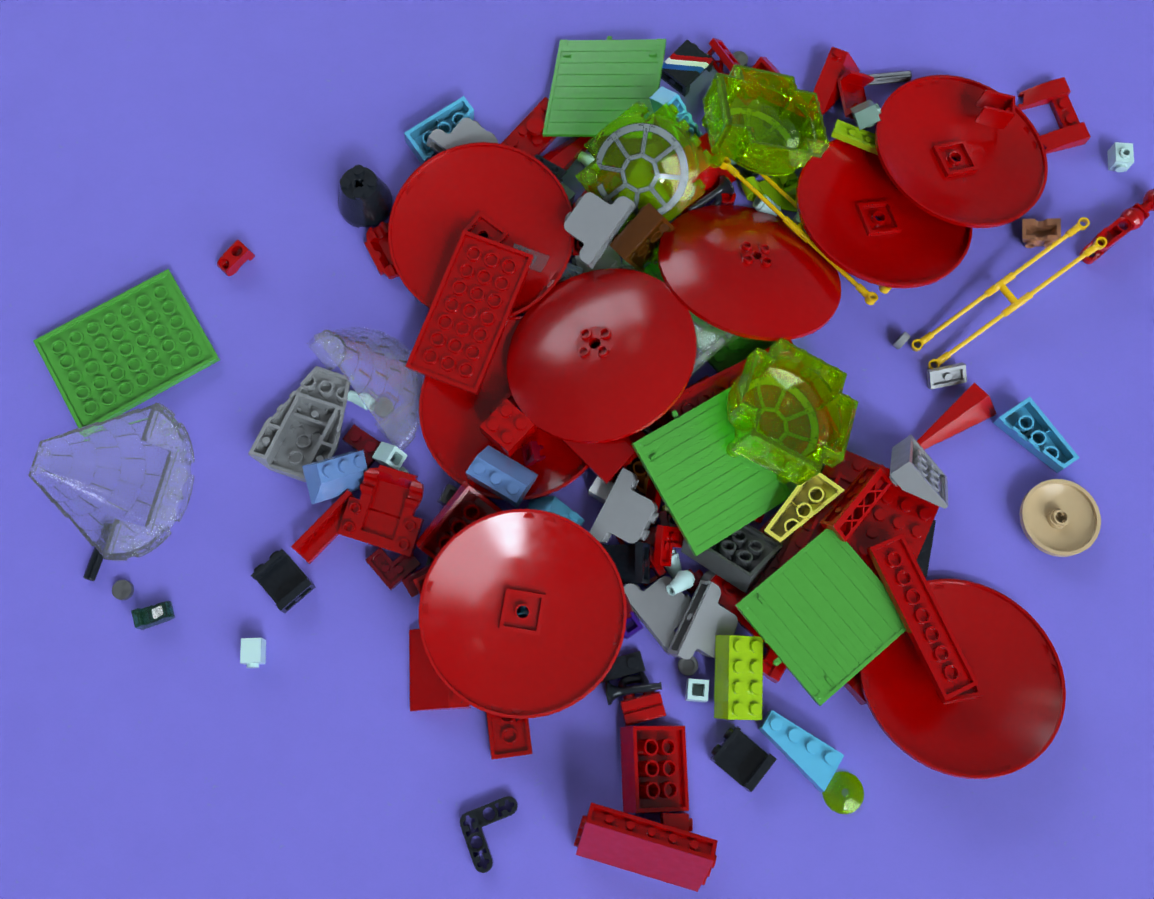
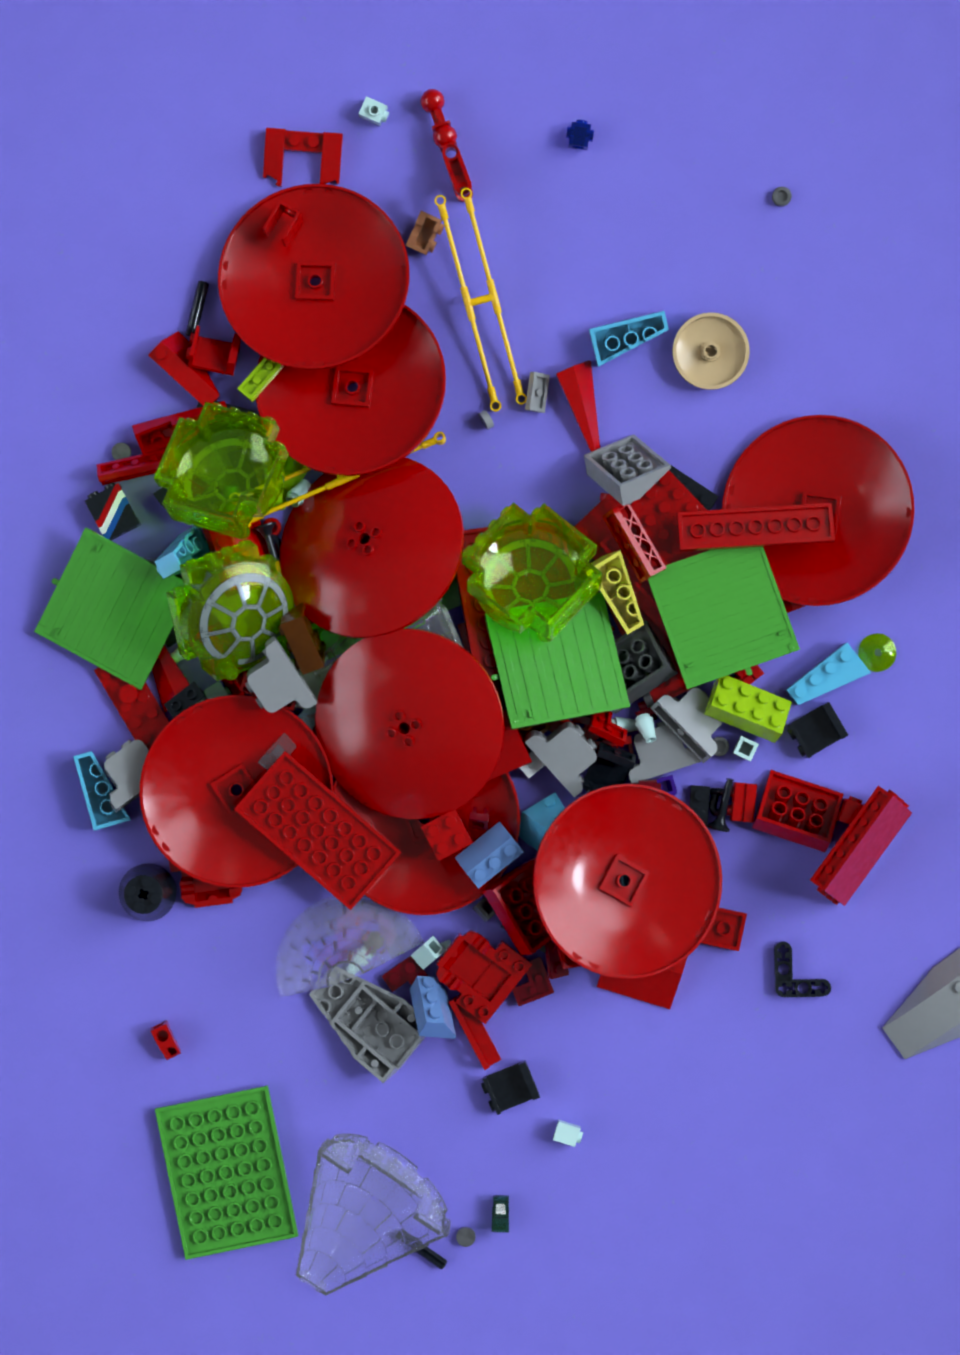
camera: 70 degrees left, 15 degrees up
(866, 114) = (245, 360): sand green brick -> none

